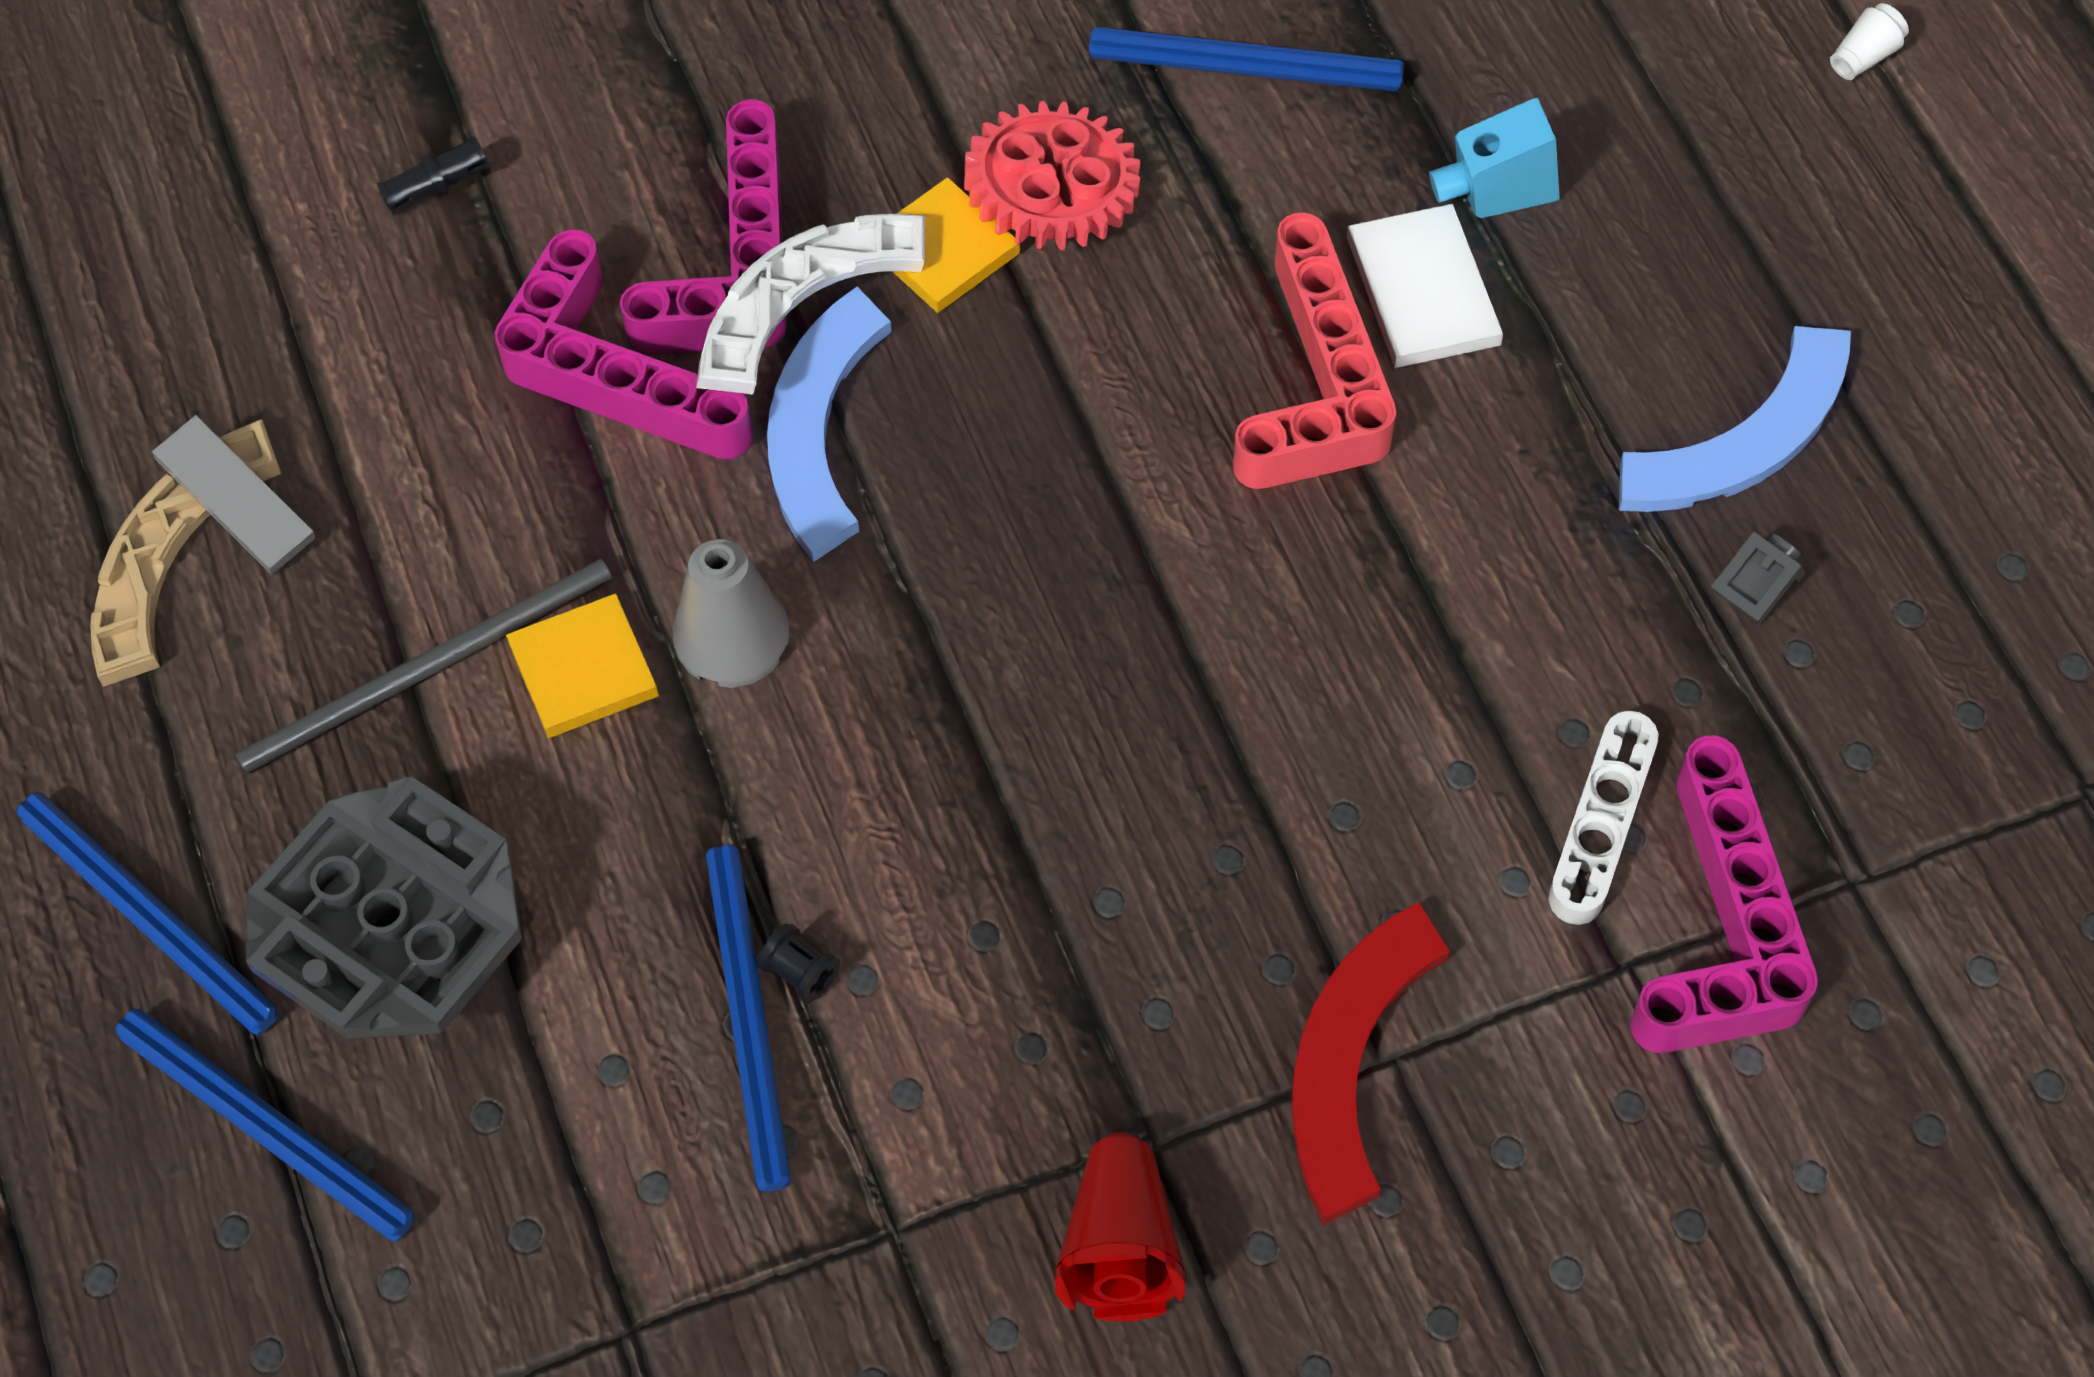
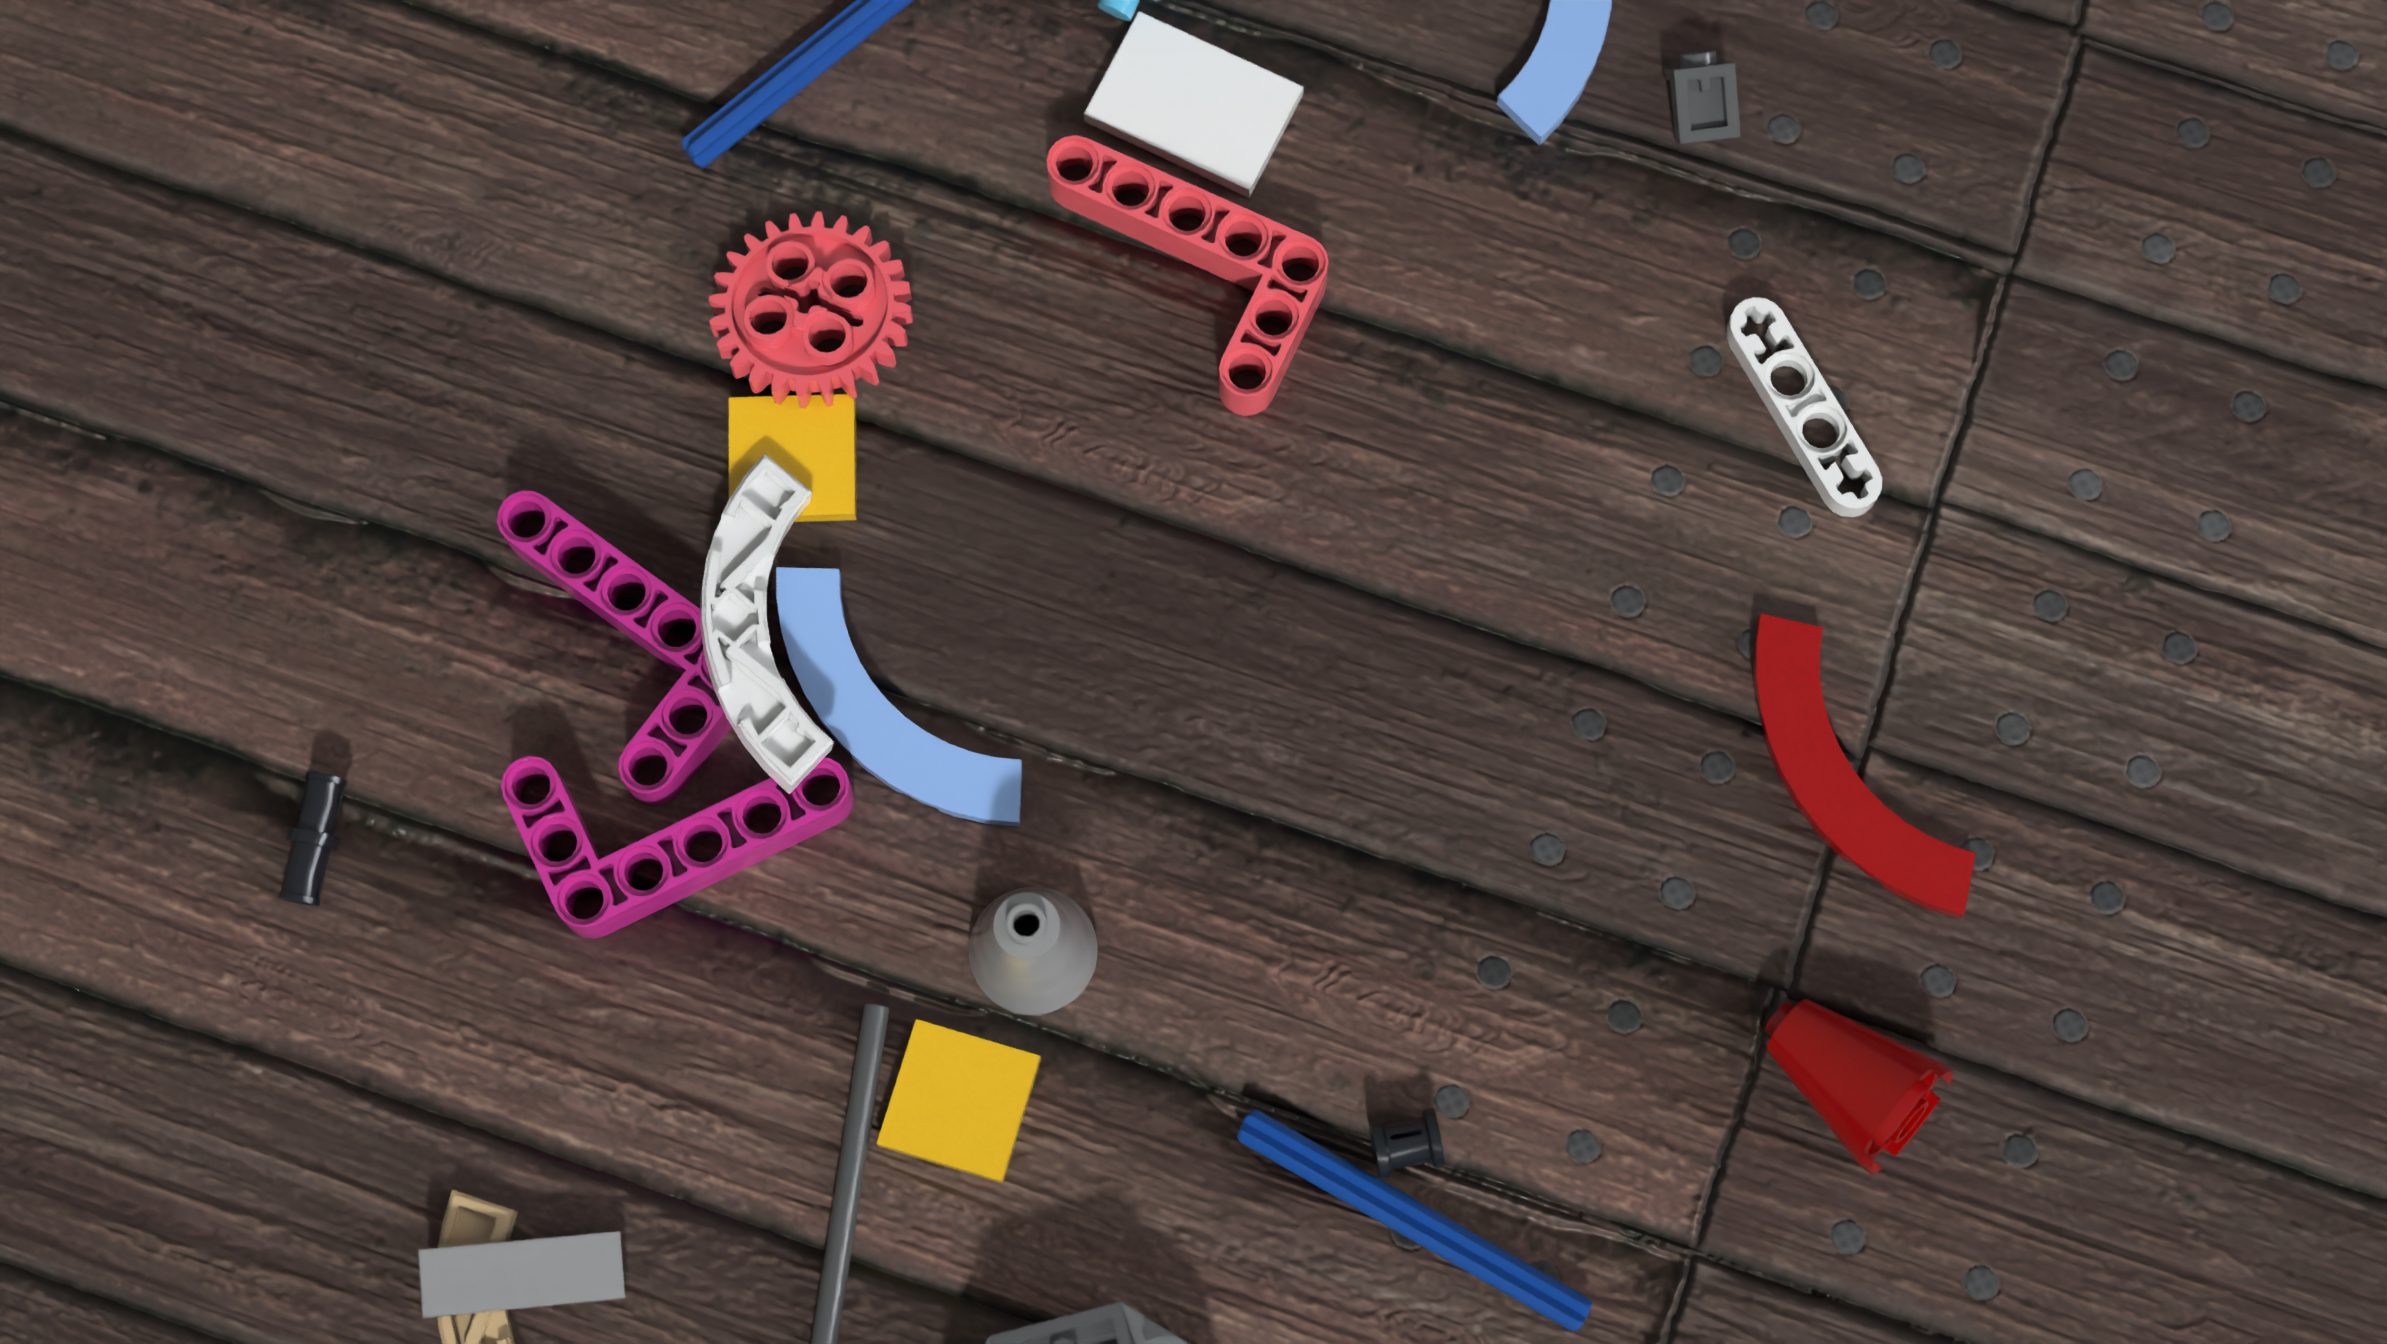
camera: 50 degrees left, 15 degrees up
(1740, 909) = (1971, 383): dark pink beam -> none

